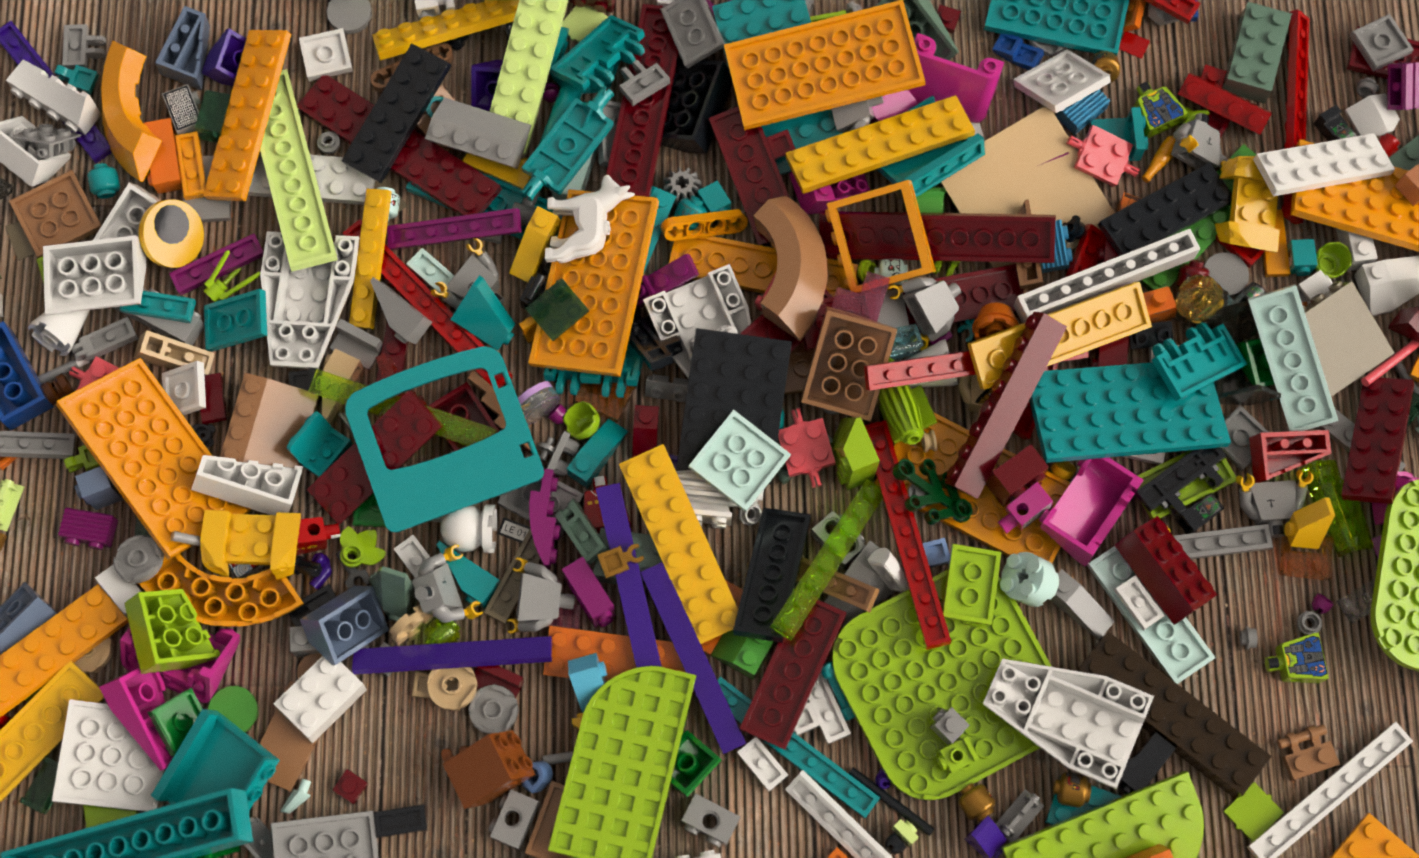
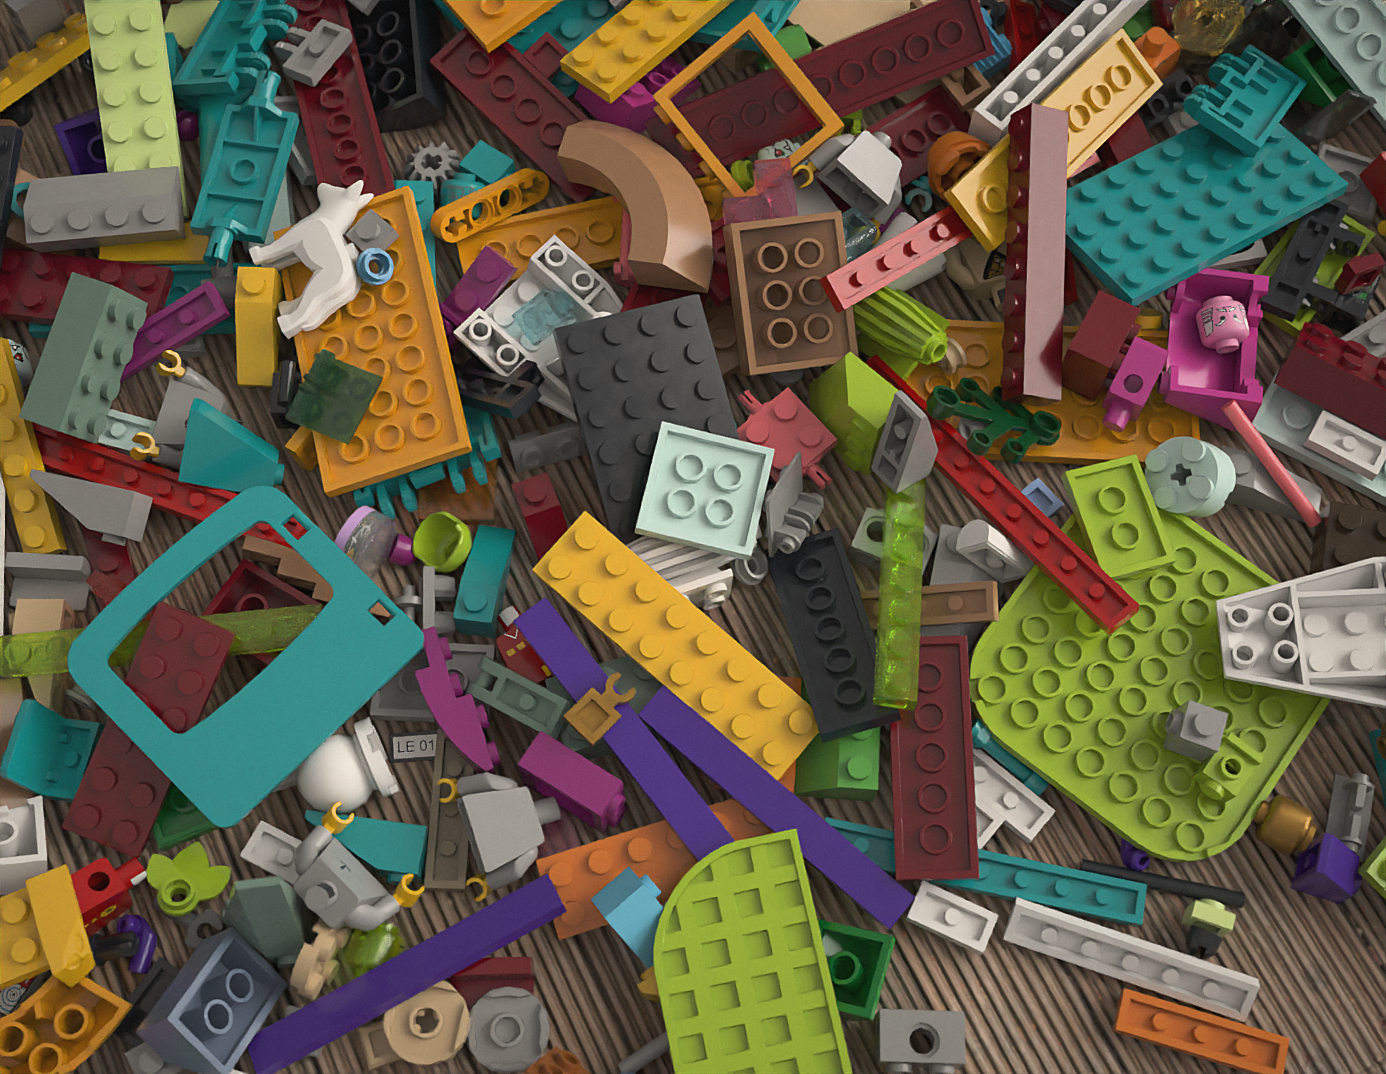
camera: 25 degrees left, 5 degrees down
(428, 225) = (84, 358): none -> sand green brick
(621, 241) = (384, 264): none -> dark azure plate
(622, 219) = (372, 232): none -> light grey plate
(702, 310) = (543, 314): none -> clear light blue bracket
(787, 492) = (790, 510): none -> light grey hinge
(865, 488) = (906, 445): none -> light grey slope
(1084, 593) = (1271, 463): none -> coral bar
(1103, 495) = (1222, 324): none -> bright pink head
(1206, 501) = (1359, 273): none -> dark red plate

